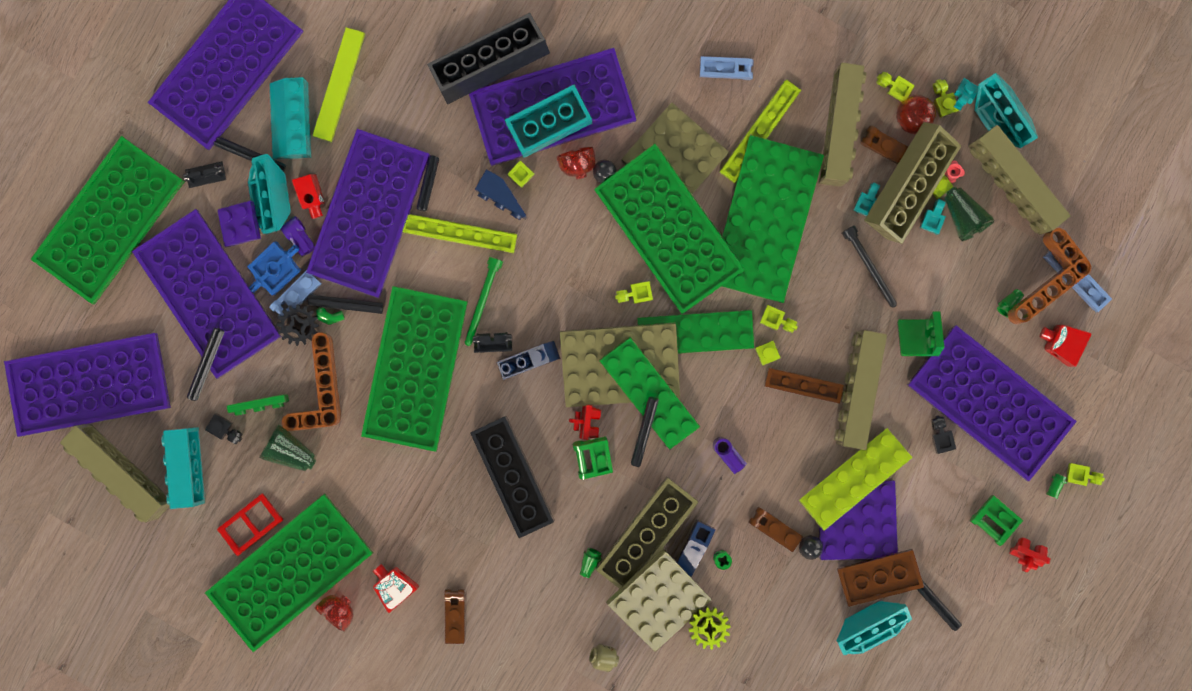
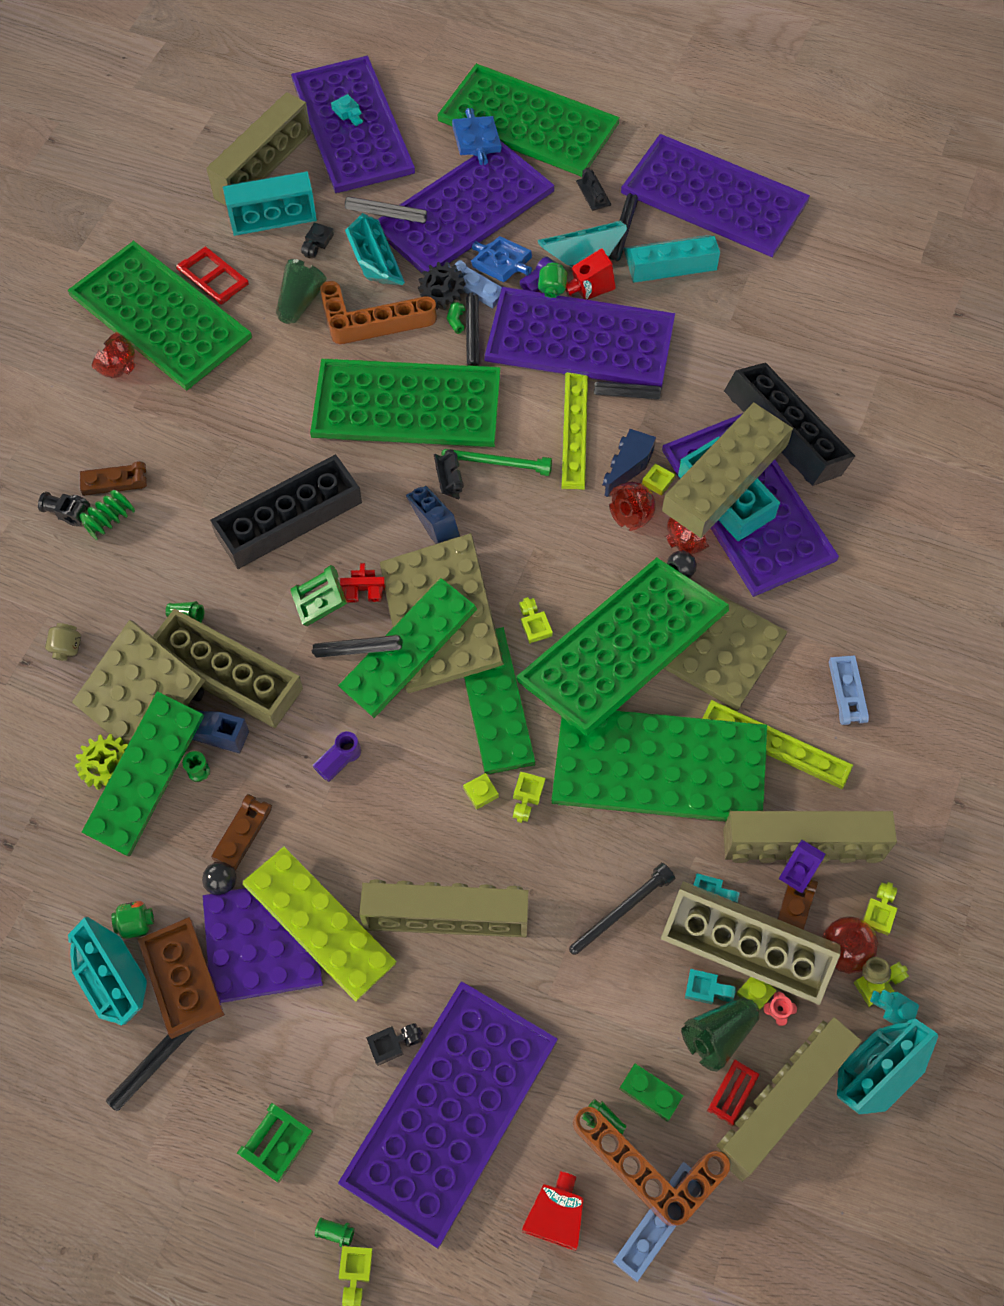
camera: 80 degrees right, 25 degrees down
(75, 387) = (347, 108): none -> teal plate
(128, 271) = (476, 136): none -> blue plate
(239, 224) = (545, 223): dark purple plate -> none
(254, 380) = (373, 251): none -> teal wedge
(258, 405) = (347, 263): green plate -> none
(311, 227) = (552, 280): none -> green head
(338, 84) = (721, 295): lime tile -> none
(393, 587) = (146, 411): torso -> none
(480, 653) = (65, 508): none -> black connector
(492, 622) = (105, 513): none -> green piece
(544, 119) = (726, 470): none -> olive brick
(545, 199) = (632, 505): none -> clear red cylinder
(727, 598) = (143, 774): none -> green plate
(803, 385) = (442, 836): reddish brown plate -> none
(833, 610) = (132, 920): none -> green head
(868, 135) = (802, 866): none -> dark purple plate
(921, 336) = (533, 987): green bracket -> none
(942, 101) = (876, 970): none -> olive plate
(995, 268) = (651, 1092): none -> green plate
(1006, 227) = (721, 1114): none -> red tile
(1029, 558) = (231, 1188): red hips -> none

